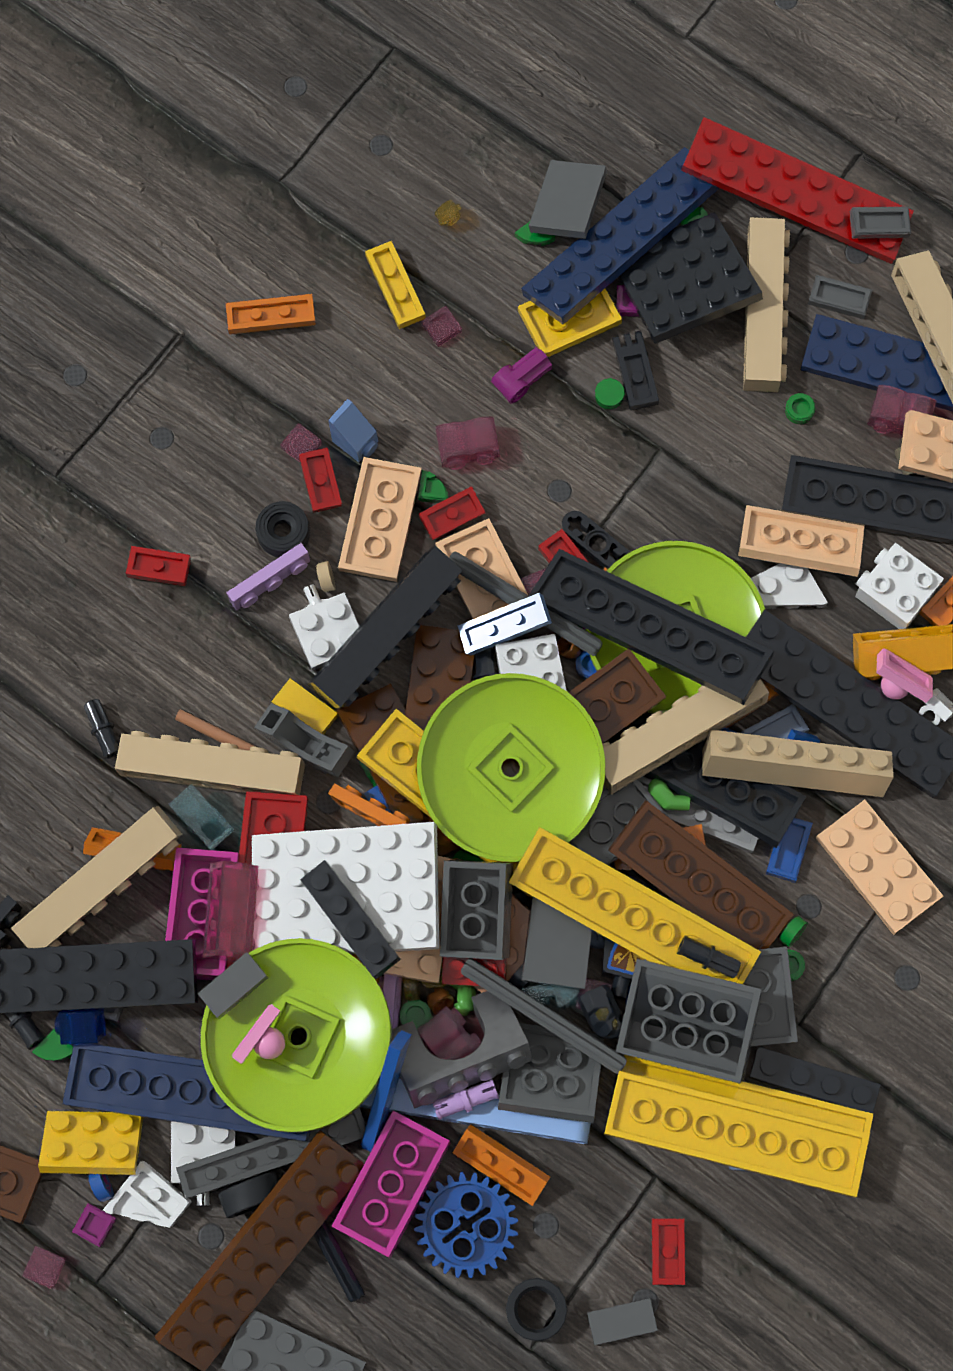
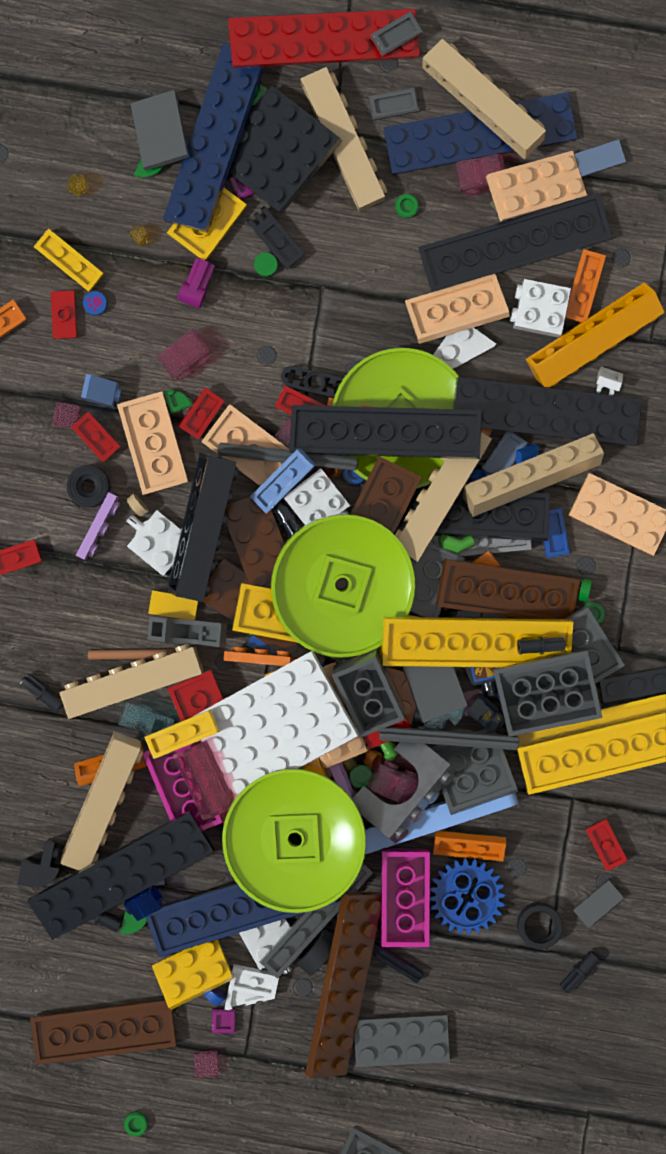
camera: 30 degrees left, 15 degrees up
(233, 985) = (234, 830): dark grey tile -> none
(234, 845) = (182, 734): none -> yellow plate
(265, 1040) = (274, 856): bright pink tile -> none
(350, 919) = (289, 746): black plate -> none
(358, 338) = (63, 315): none -> red plate
(386, 1089) = (372, 844): blue tile -> none
(398, 343) = (95, 303): none -> blue tile
(441, 326) = (118, 274): clear pink tile -> none
(465, 1099) = (427, 819): lavender pin -> none
(486, 296) = (139, 235): none -> clear yellow plate
(902, 678) = (576, 376): bright pink tile -> none

